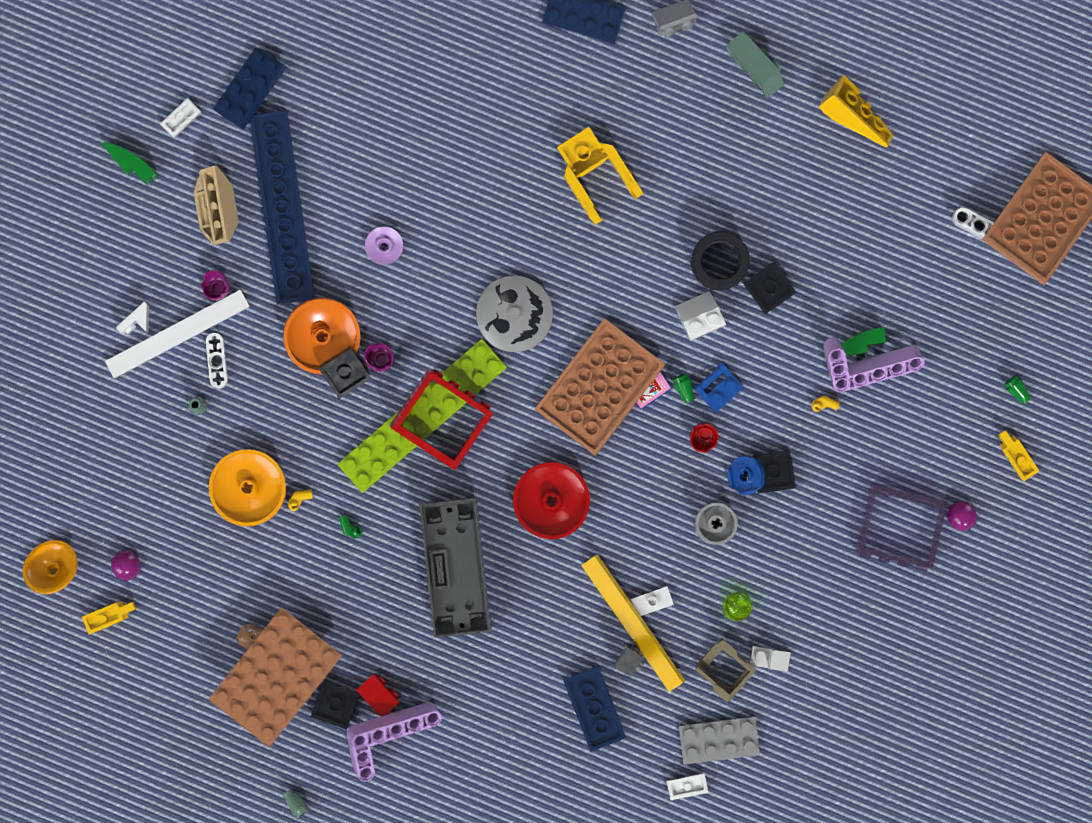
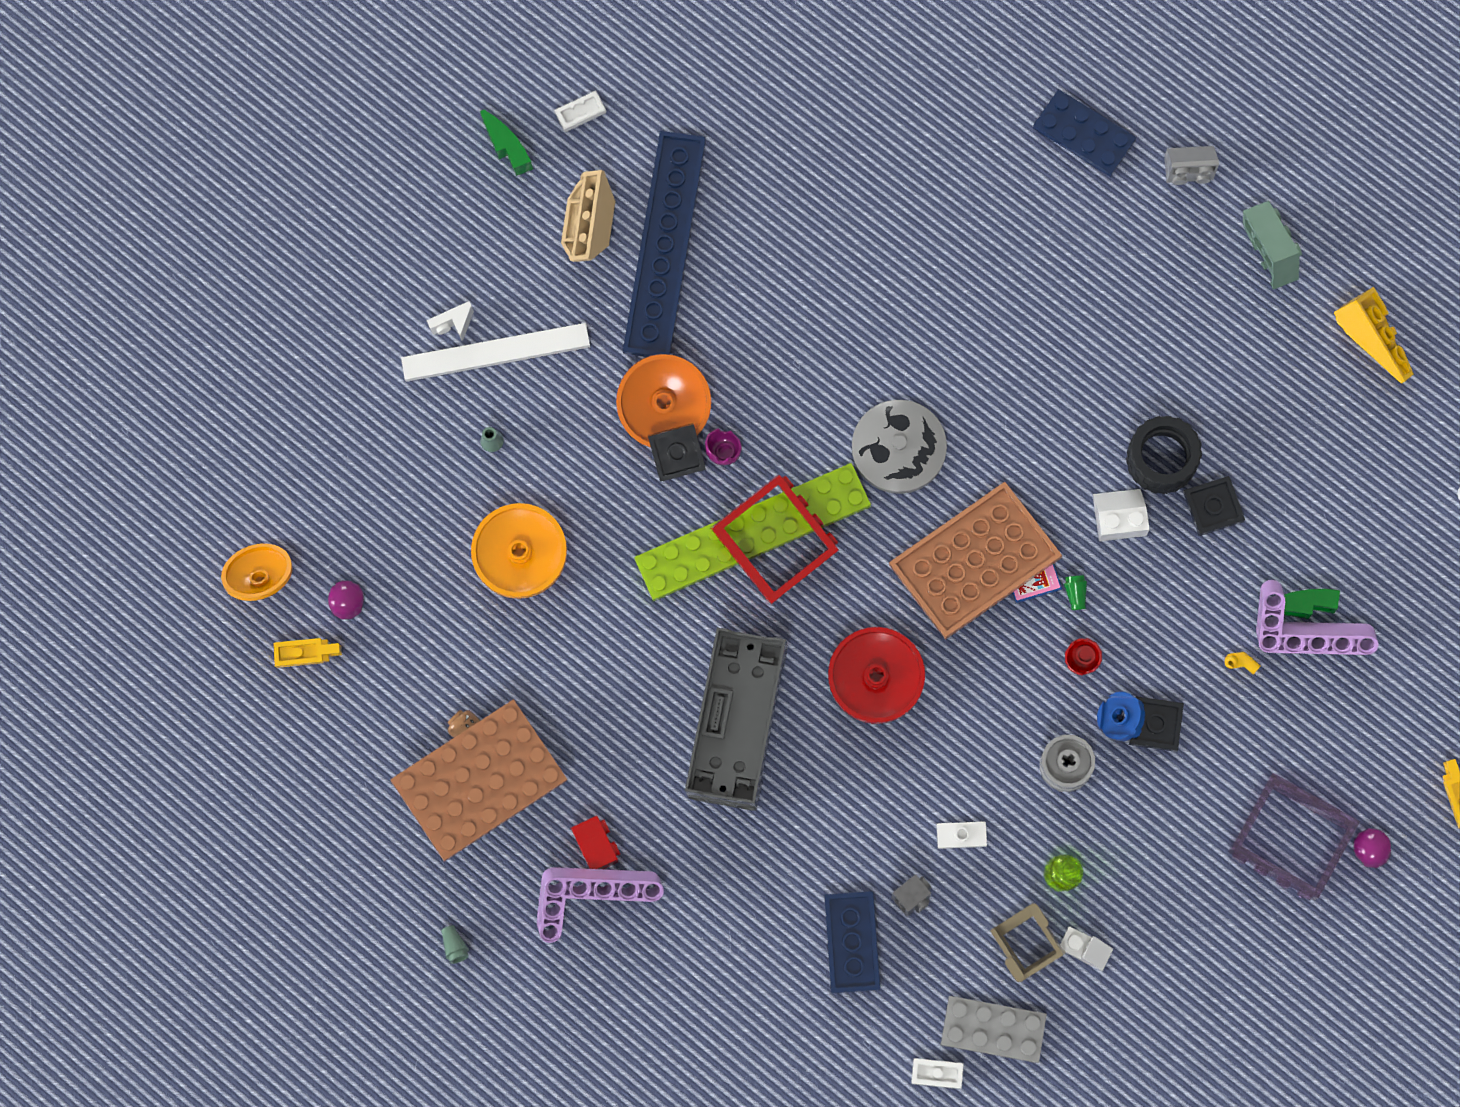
camera: 20 degrees right, 10 degrees down
(213, 375) = (528, 378): white beam -> none
(215, 285) = (558, 308): magenta hair -> none
(249, 88) = (670, 100): dark blue plate -> none
(297, 498) = (574, 582): yellow arm -> none
(335, 704) = (539, 840): black plate -> none
(349, 529) = (623, 638): green arm -> none
(377, 238) = (772, 311): lavender dish -> none
(585, 154) = (1037, 288): yellow plate -> none
(633, 623) = (931, 853): yellow tile -> none
(721, 393) = (1120, 612): blue plate -> none

